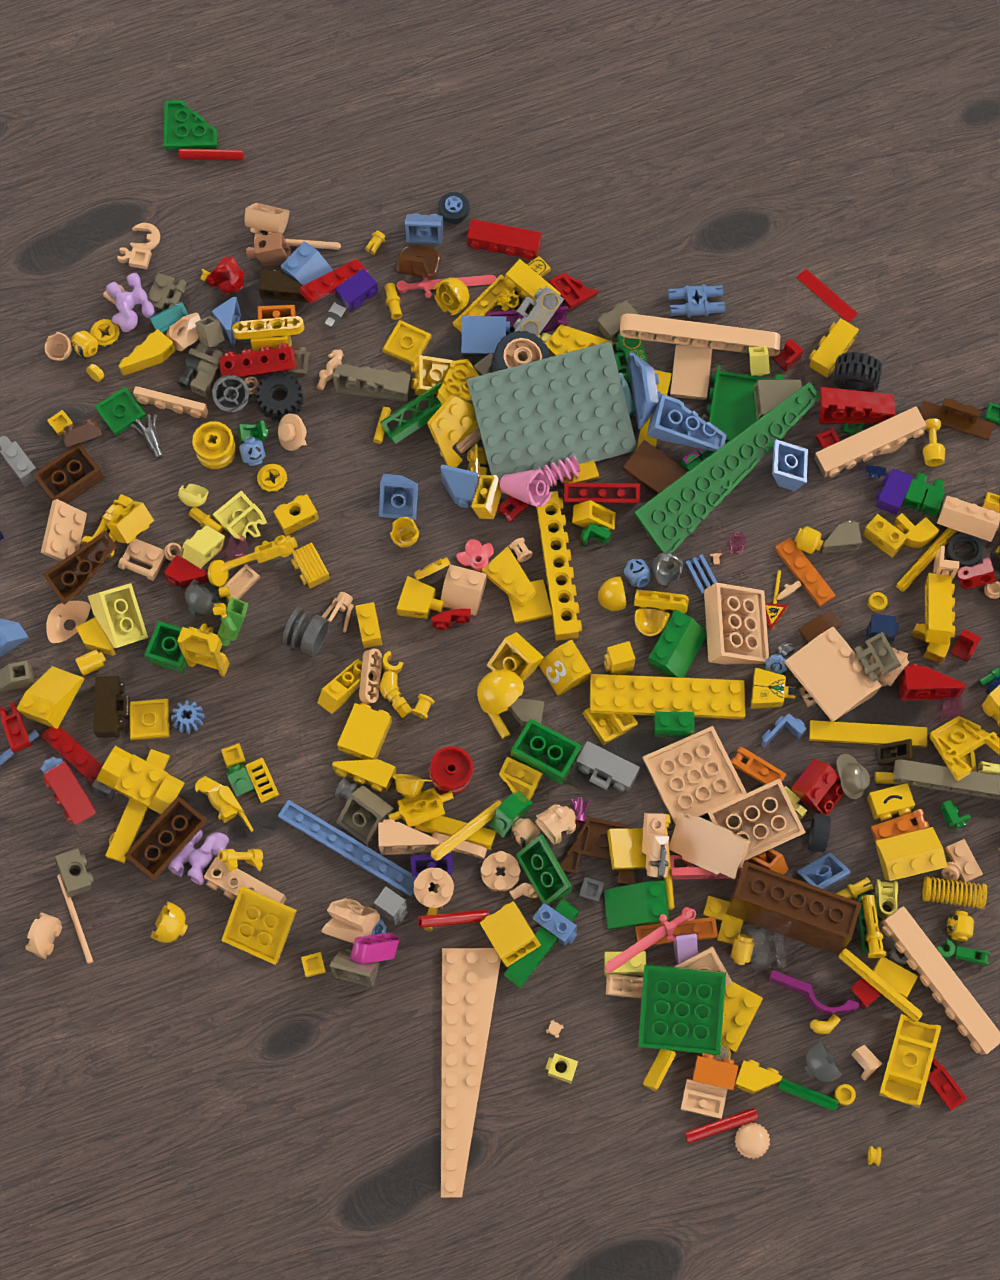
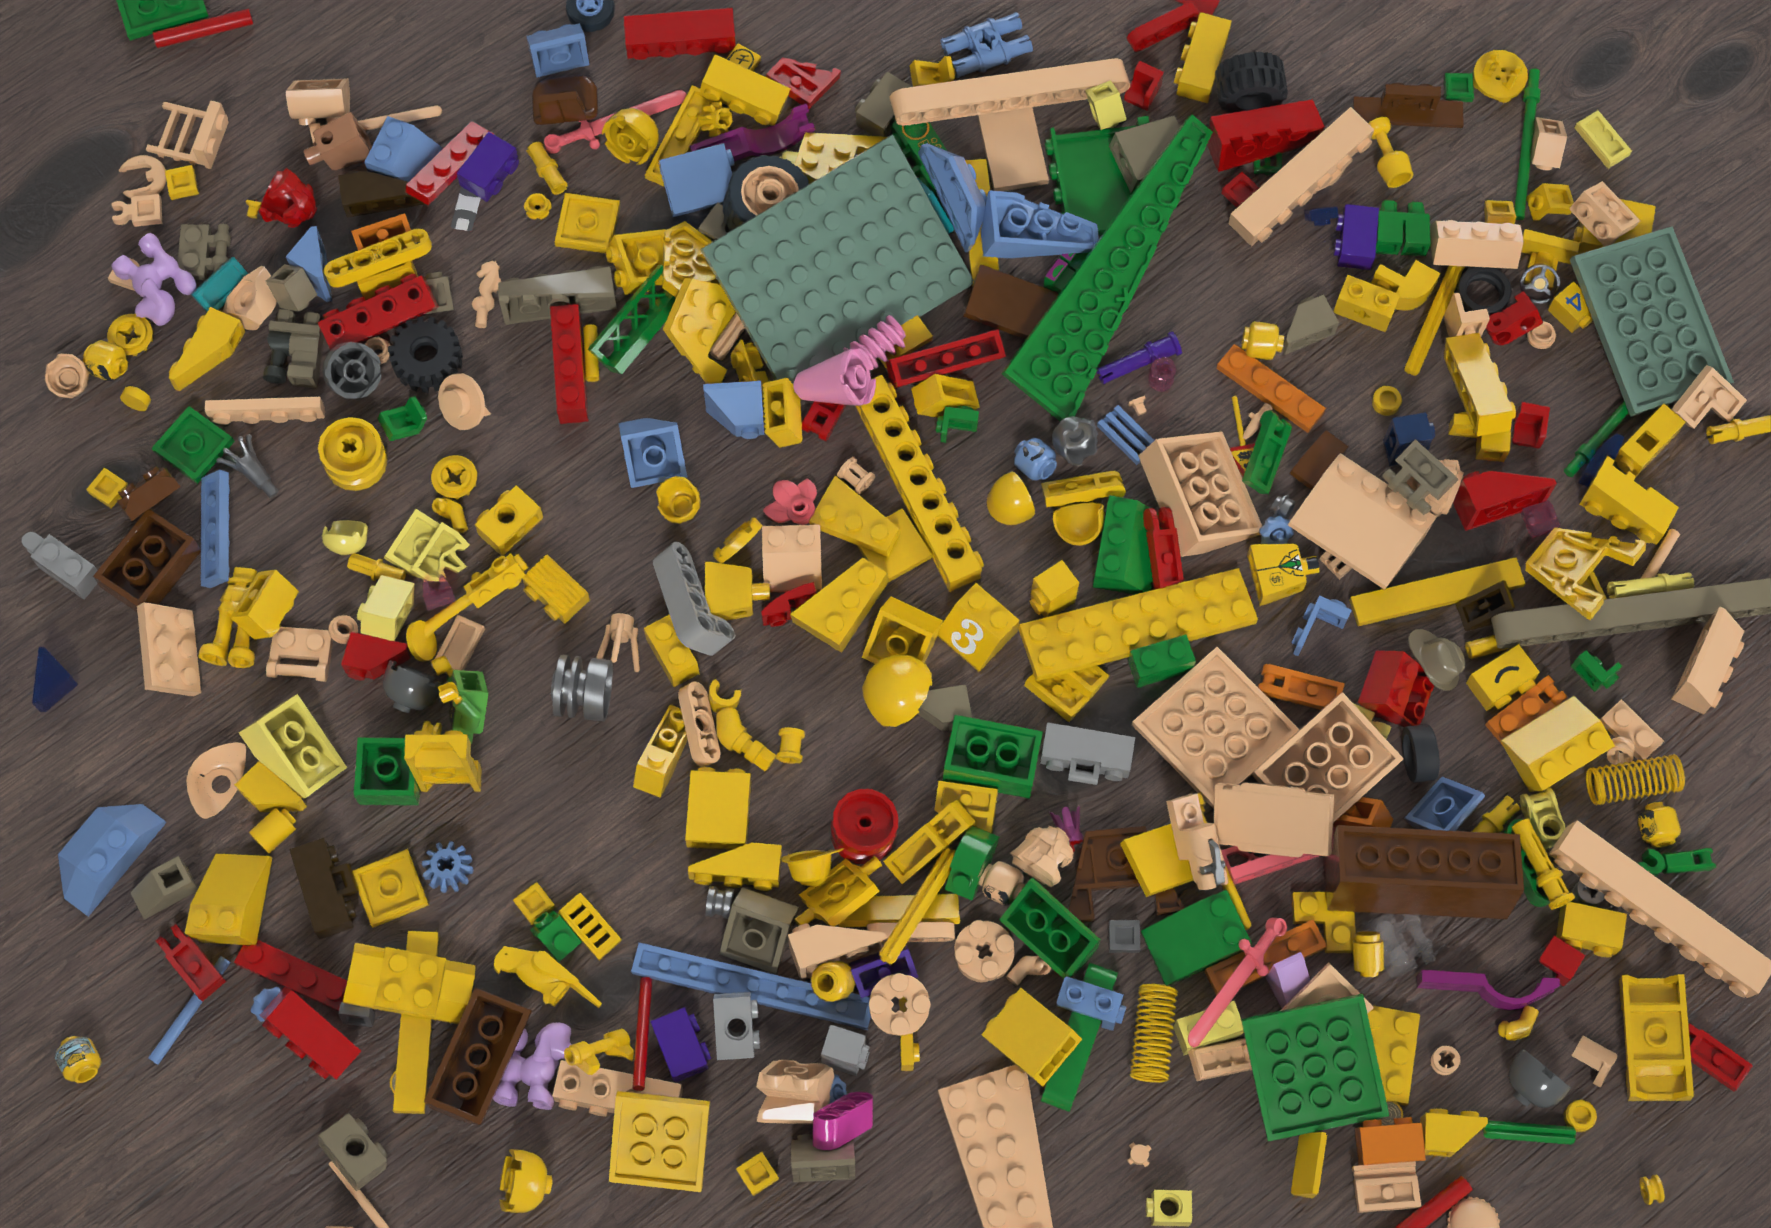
camera: 20 degrees left, 0 degrees up
(76, 570) = (208, 700): reddish brown wedge -> none
(116, 467) = (215, 529): none -> medium blue plate
(166, 246) = (181, 182): none -> yellow plate
(190, 225) = (207, 139): none -> light nougat plate
(252, 451) = (412, 446): medium blue head -> none
(264, 498) = (451, 510): none -> yellow arm
(271, 856) = (642, 1034): none -> red bar
(292, 870) = (680, 1045): none -> dark purple brick
(321, 877) = (728, 1043): none -> light grey brick
(365, 427) = (569, 364): none -> red brick
(376, 240) = (492, 86): yellow pin -> none
(379, 319) = (537, 200): none -> yellow plate
(387, 599) = (687, 603): none -> light grey beam
(397, 860) = (832, 981): none -> yellow head
(452, 918) = (940, 1041): red piece -> none
(484, 628) = (842, 605): none -> yellow wedge
(489, 792) = (929, 841): none -> yellow slope
(500, 726) = (911, 739): yellow piece -> none
(544, 307) = (773, 121): light grey piece -> none
(595, 930) = (1147, 1073): none -> yellow piece
(655, 309) = (932, 73): none -> yellow bracket
(699, 653) = (1163, 547): none -> red hinge
(743, 526) = (1161, 348): none -> dark purple pin
(764, 1029) = (1454, 1063): none -> light nougat bush
(787, 612) = (1267, 452): none -> green plate
(789, 465) = (1201, 241): medium blue slope -> none
(814, 320) = (1163, 27): none -> red beam
(880, 985) = (1580, 943): yellow axle -> none

